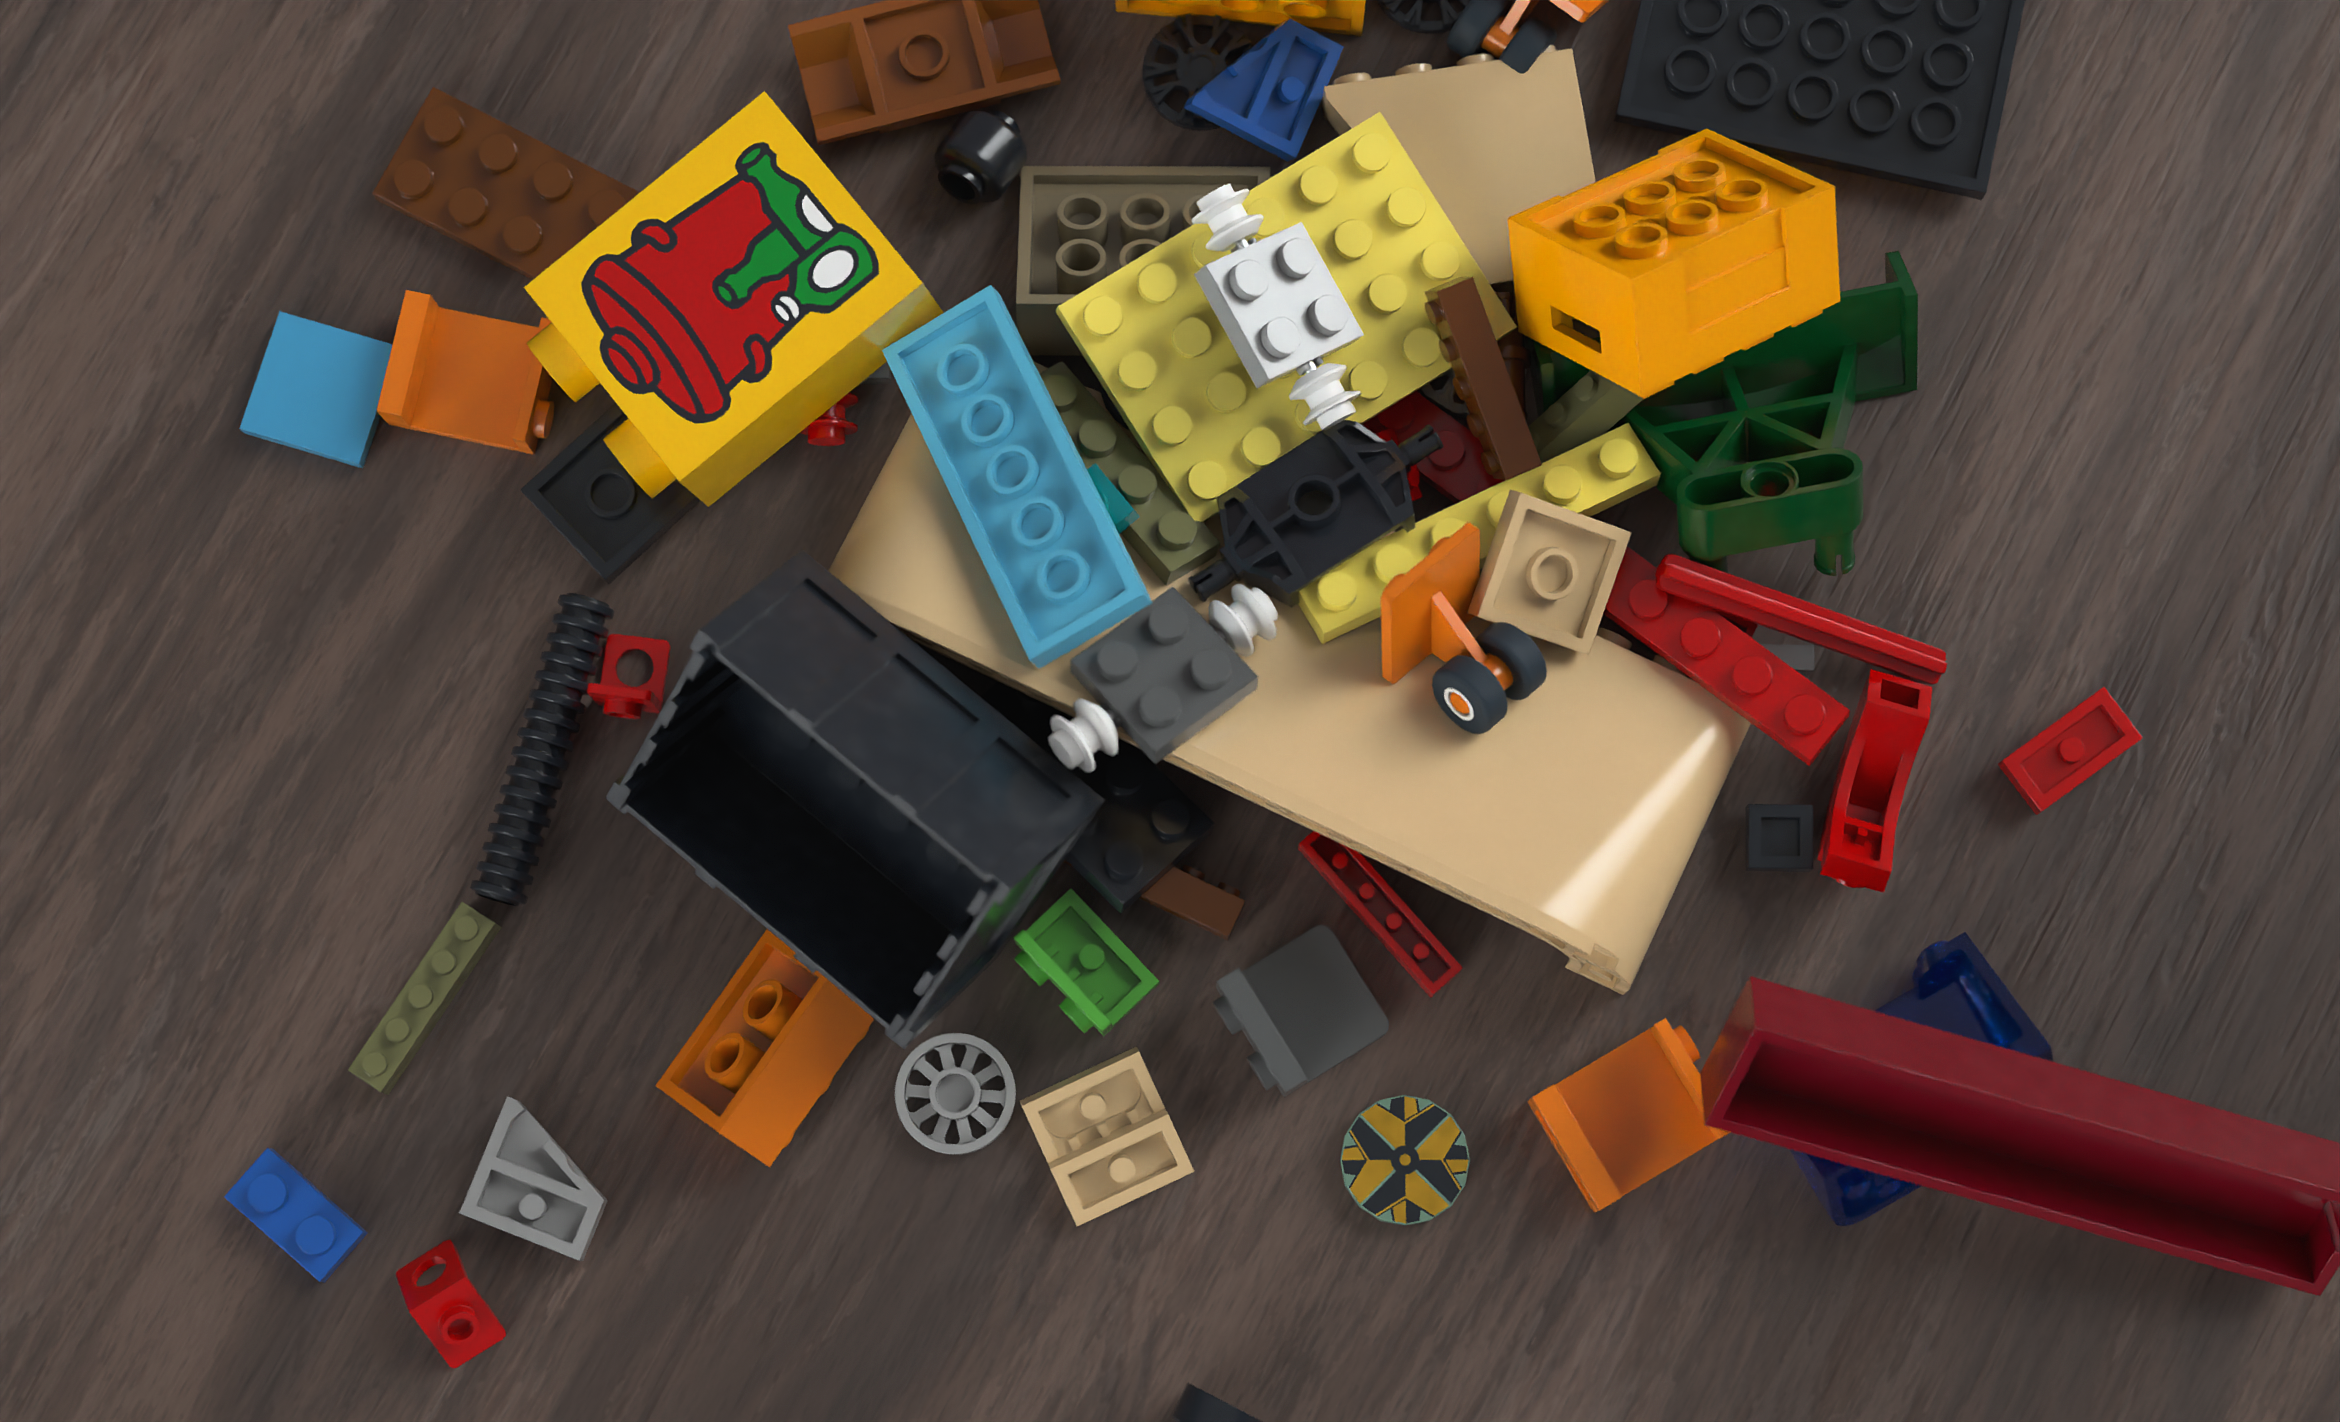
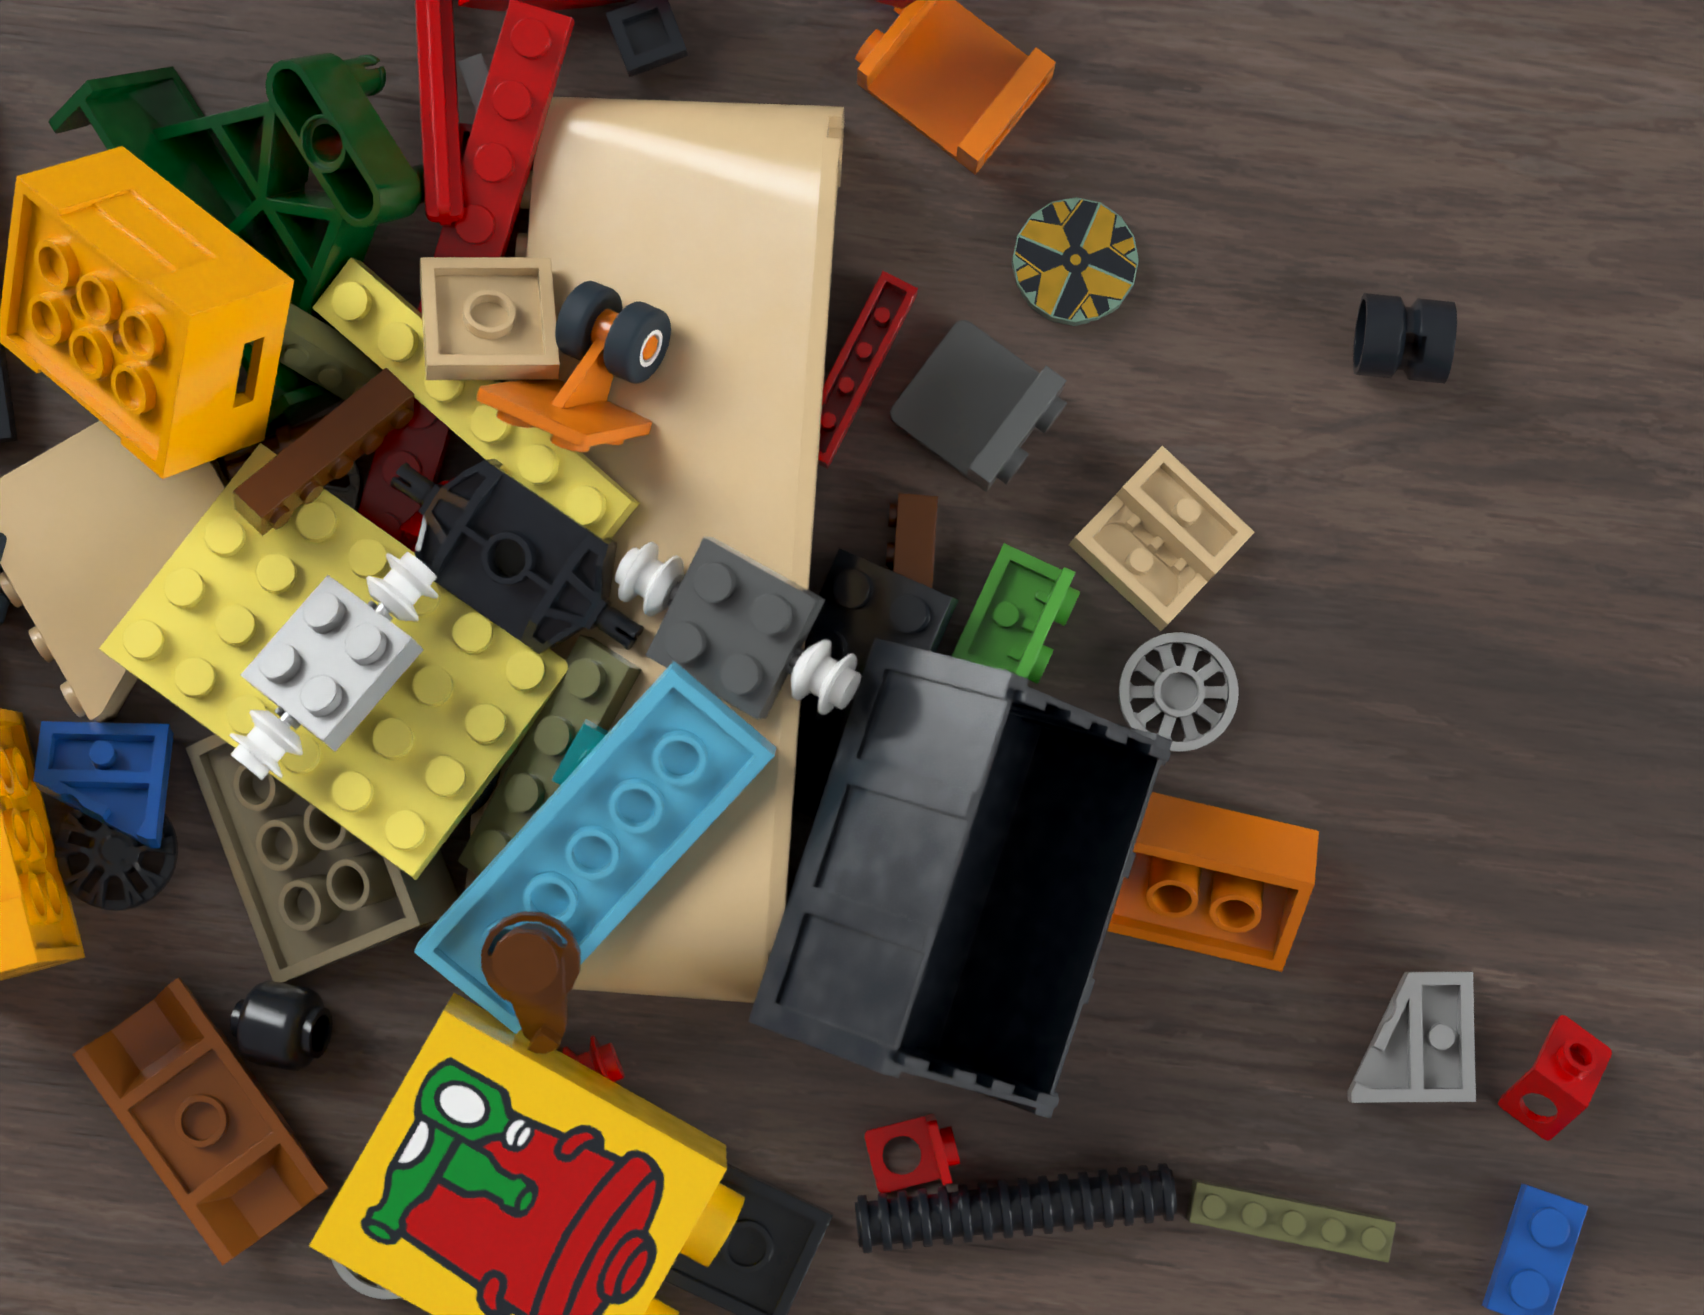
camera: 115 degrees left, 5 degrees up
(926, 381) = (534, 974): none -> reddish brown piece

